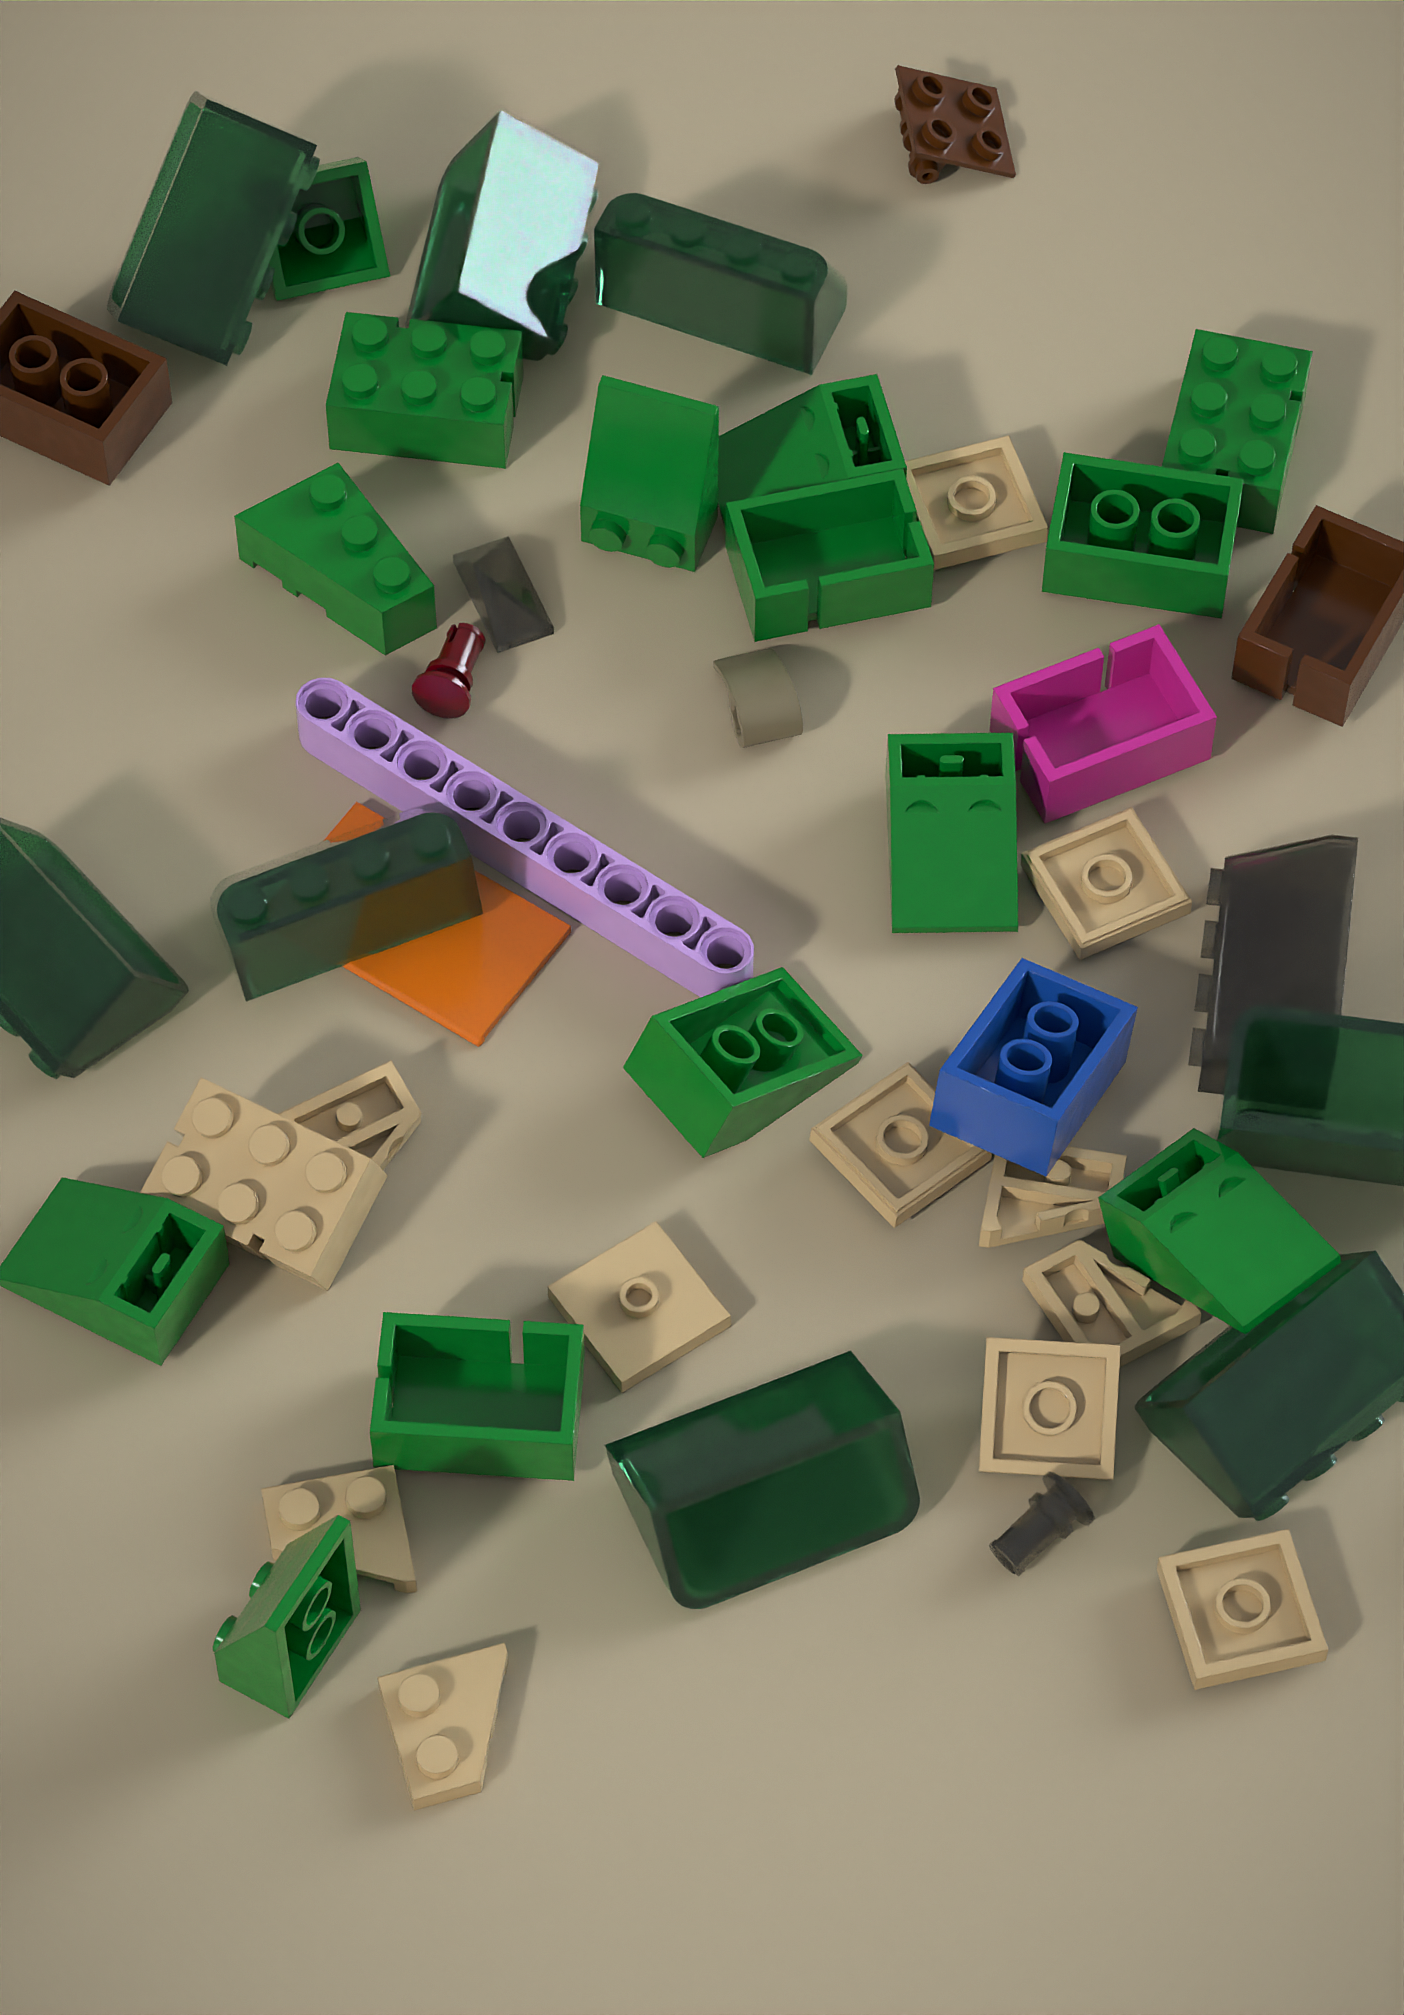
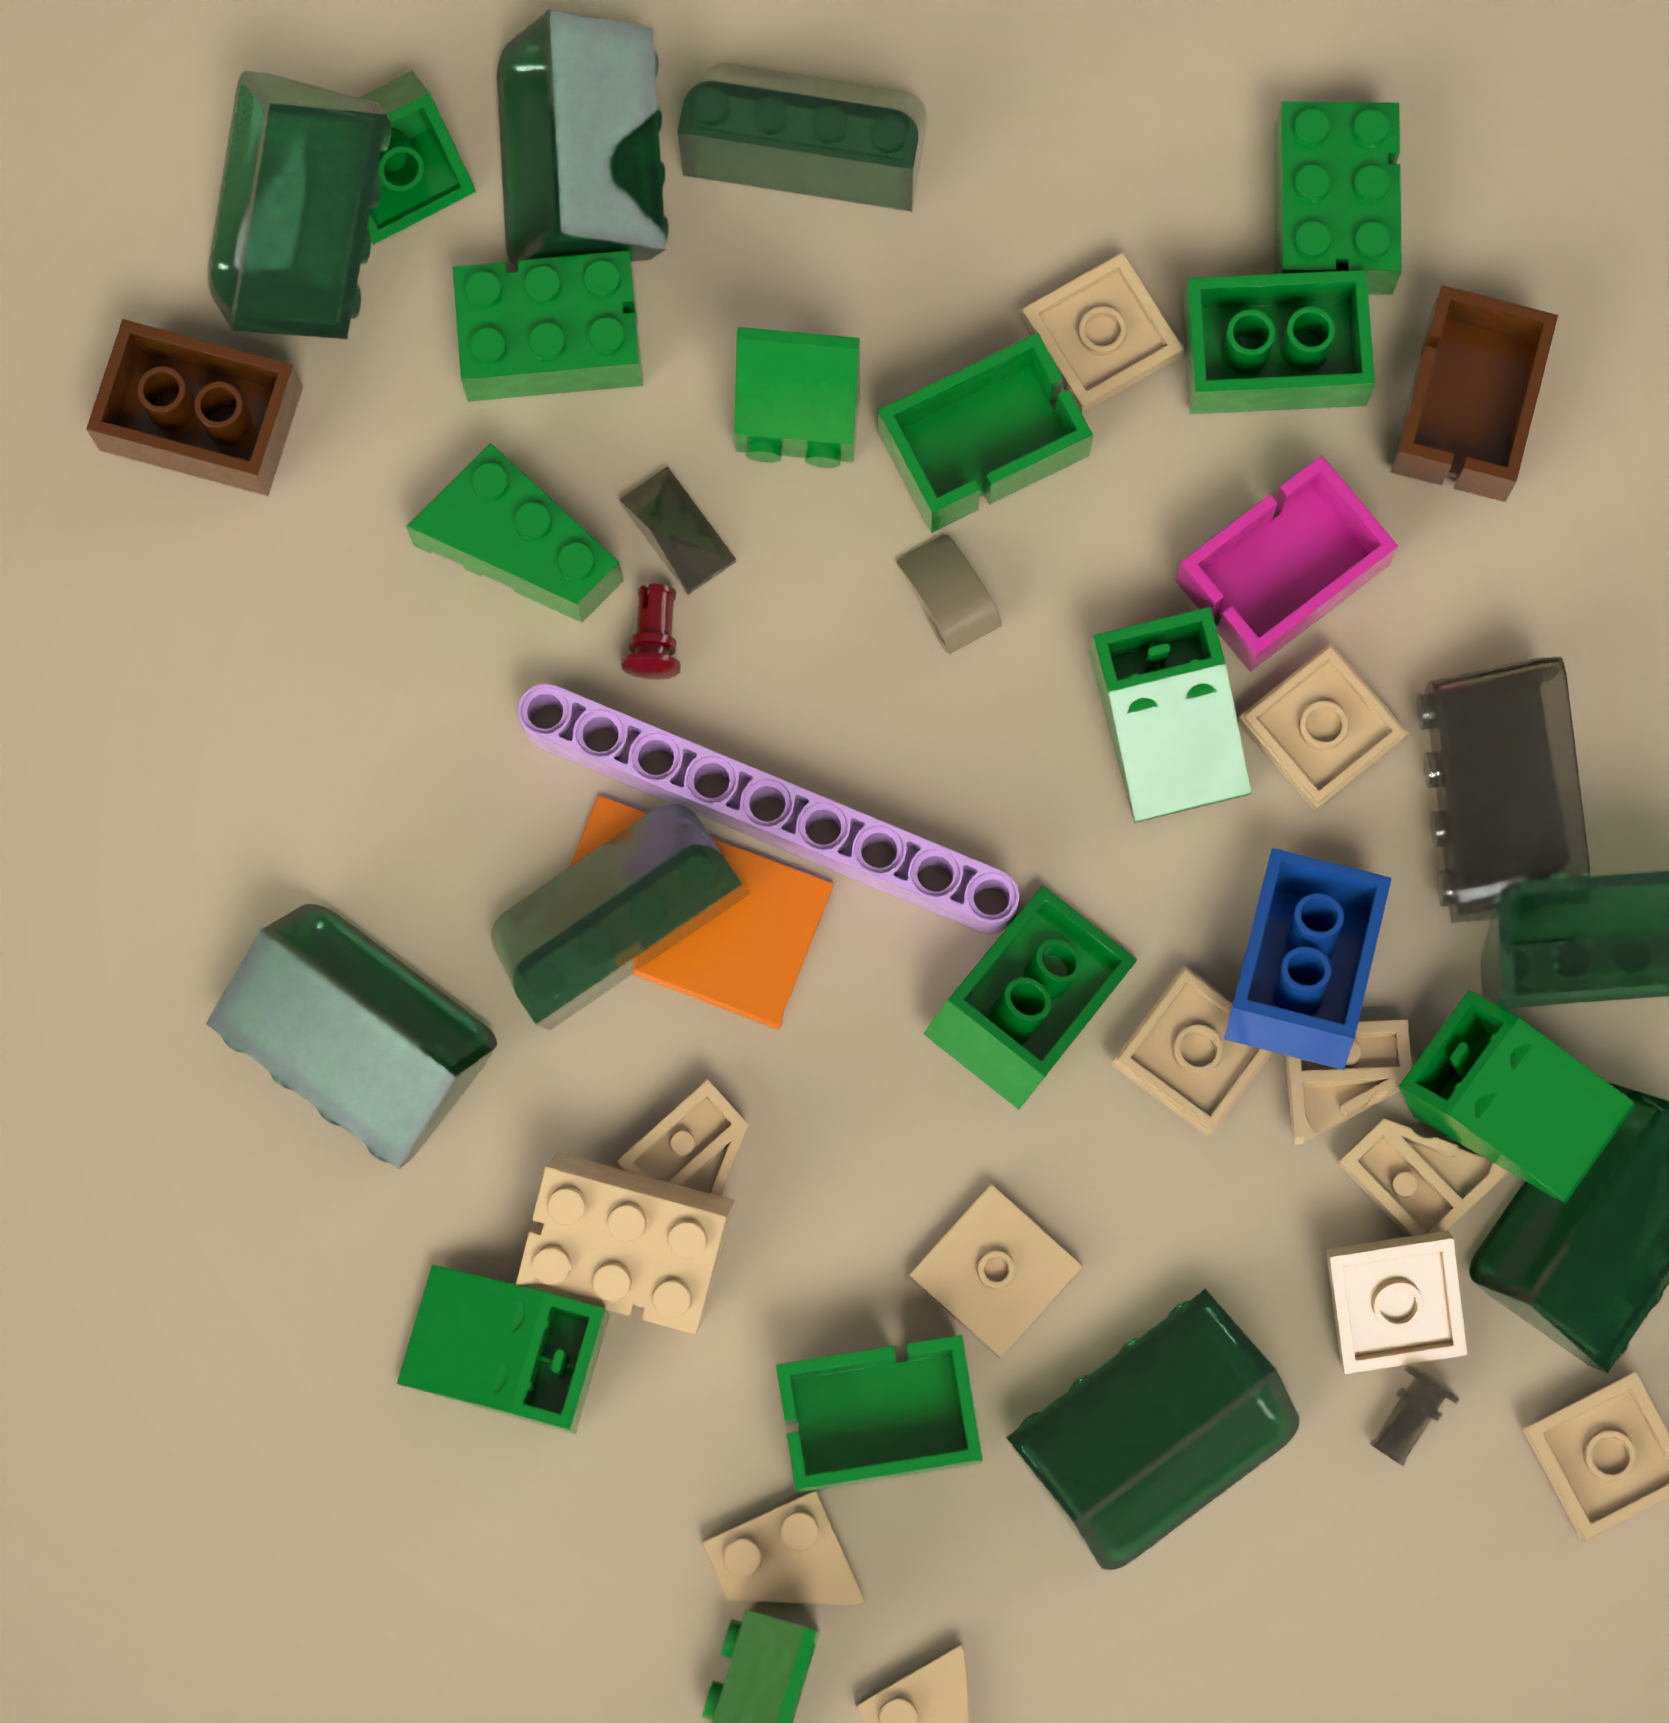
camera: 10 degrees left, 20 degrees up
(810, 440) = (937, 320): green slope -> none

